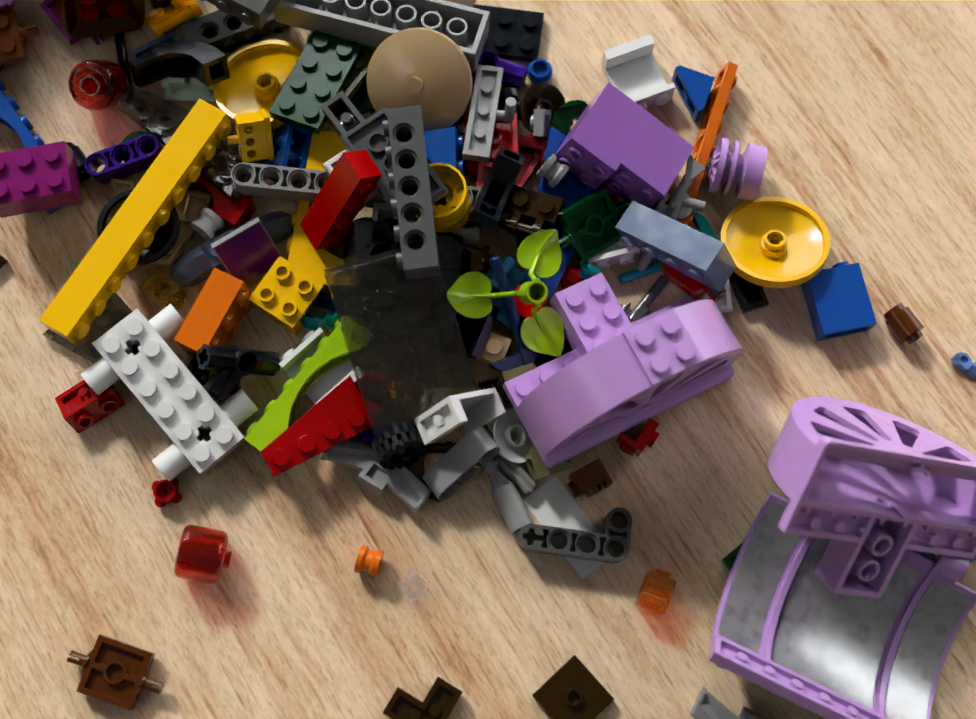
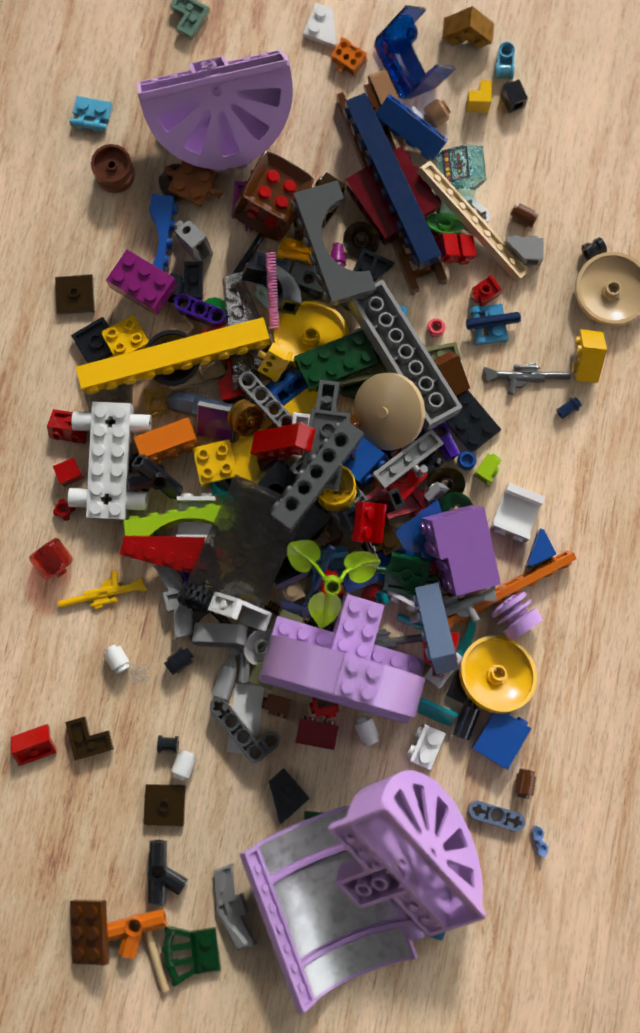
camera: 45 degrees right, 5 degrees up
(35, 285) = (91, 341): none -> black plate
(48, 97) = (193, 240): none -> light grey torso
(64, 251) = (125, 336): none -> yellow bracket
(85, 134) = (193, 279): none -> black plate
(97, 80) = (224, 252): clear red head -> none
(134, 447) = (68, 472): none -> red panel
(178, 59) = (273, 318): none -> bright pink piece
(207, 224) = (210, 386): white wheel -> none
(279, 215) = (248, 421): none -> pearl gold wheel
(293, 544) = (101, 595): none -> yellow piece
(369, 561) = (128, 640): orange wheel -> none
(374, 593) = (116, 659): none -> white brick
(443, 531) = (179, 660): none -> black brick
(508, 199) = (369, 522): none -> red bracket
(515, 629) = (168, 744): none -> black bush
(552, 171) = (412, 526): light grey wheel -> none
(552, 634) = (183, 765): none -> white brick
(568, 60) = (488, 468): none -> lime brick
(656, 591) = (255, 794): clear orange brick -> none
(657, 468) = (317, 733): none -> dark red brick
(688, 562) = (286, 795): none -> black wing
(703, 419) = (367, 731): none -> white brick
(757, 333) = (436, 712): none -> teal slope
(774, 380) = (426, 746): none -> white bracket
(788, 315) = (467, 720): none -> black wheel
(915, 374) = (512, 814): none -> sand blue beam

